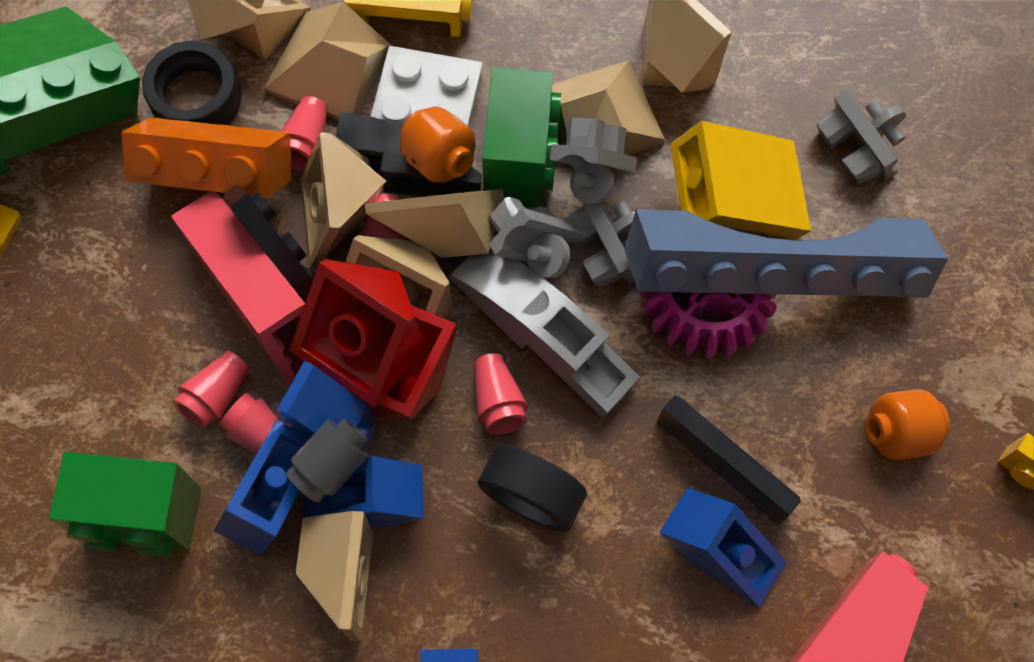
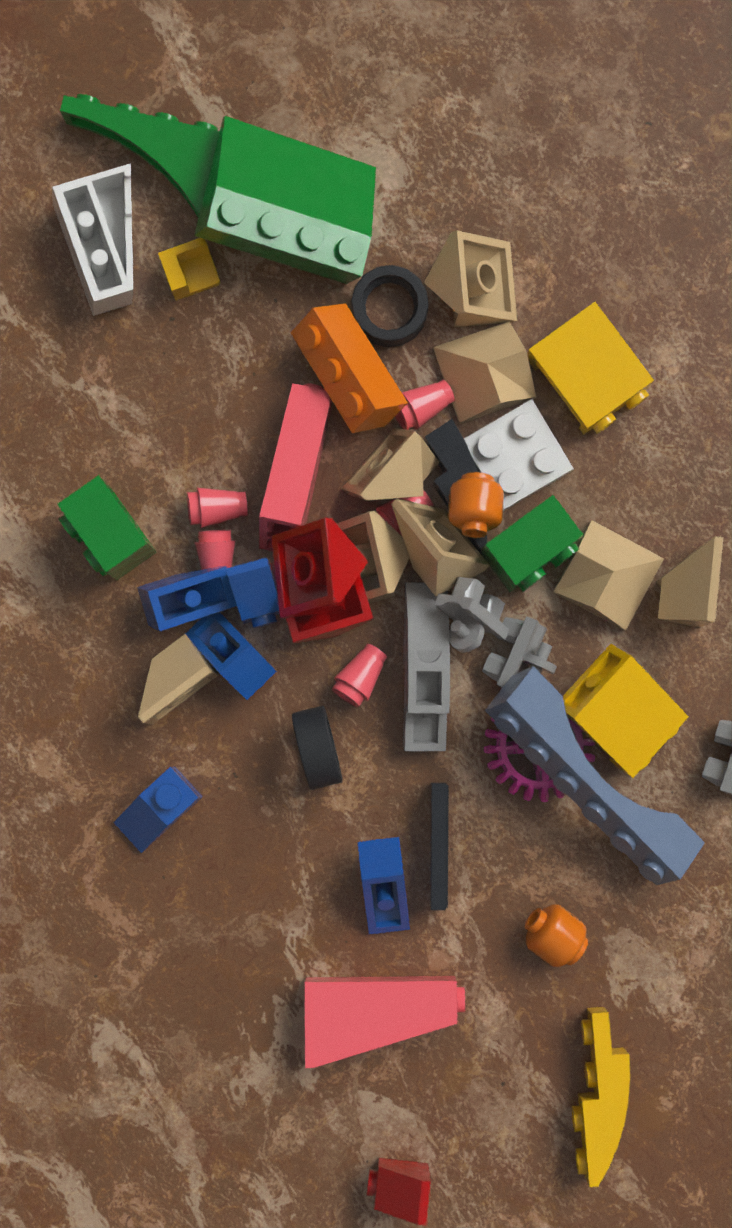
camera: 55 degrees right, 15 degrees up
(283, 250) = (328, 471): black hinge -> none
(328, 459) = (225, 621): dark grey brick -> none
(594, 151) = (555, 606): light grey hips -> none

